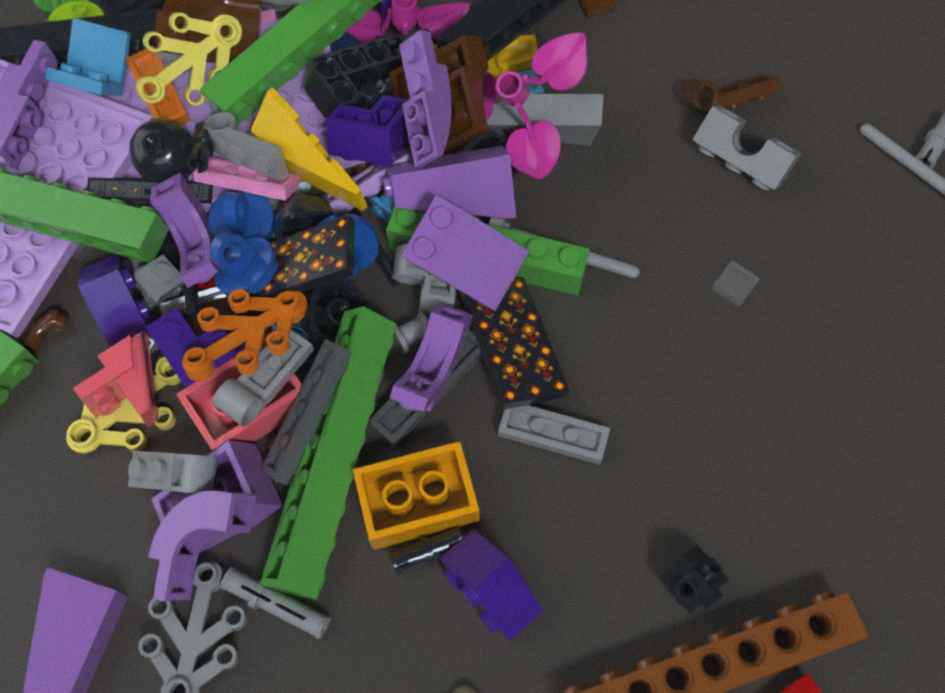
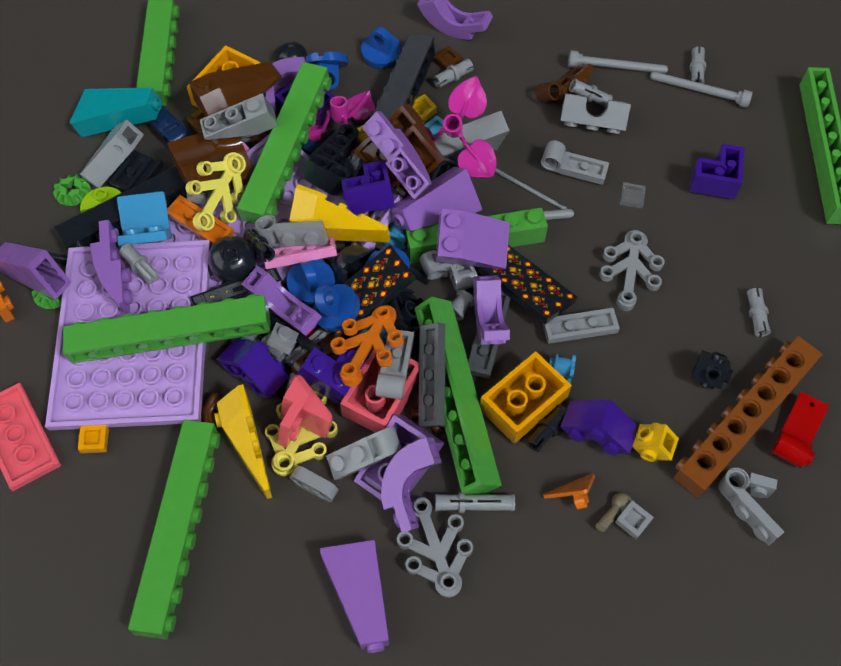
camera: 30 degrees left, 5 degrees down
(54, 110) = (139, 263): none -> light grey axle
(56, 368) = (239, 427): none -> yellow wedge
(99, 479) = (314, 483): none -> light grey beam
(409, 653) = (577, 488): none -> orange piece
(494, 477) = (564, 366): none -> dark azure brick
(552, 643) = (655, 442): none -> yellow brick
(589, 21) = (452, 73): none -> light grey pin
(595, 209) = (529, 189): none -> light grey piece
(660, 194) = (573, 165): none -> light grey plate
(674, 380) = (632, 265): none -> light grey plant
(741, 104) = (590, 91): none -> light grey pin
(769, 65) = (576, 59): none -> light grey piece
(816, 528) = (758, 312): none -> light grey pin
(871, 311) = (719, 176): none -> dark purple brick

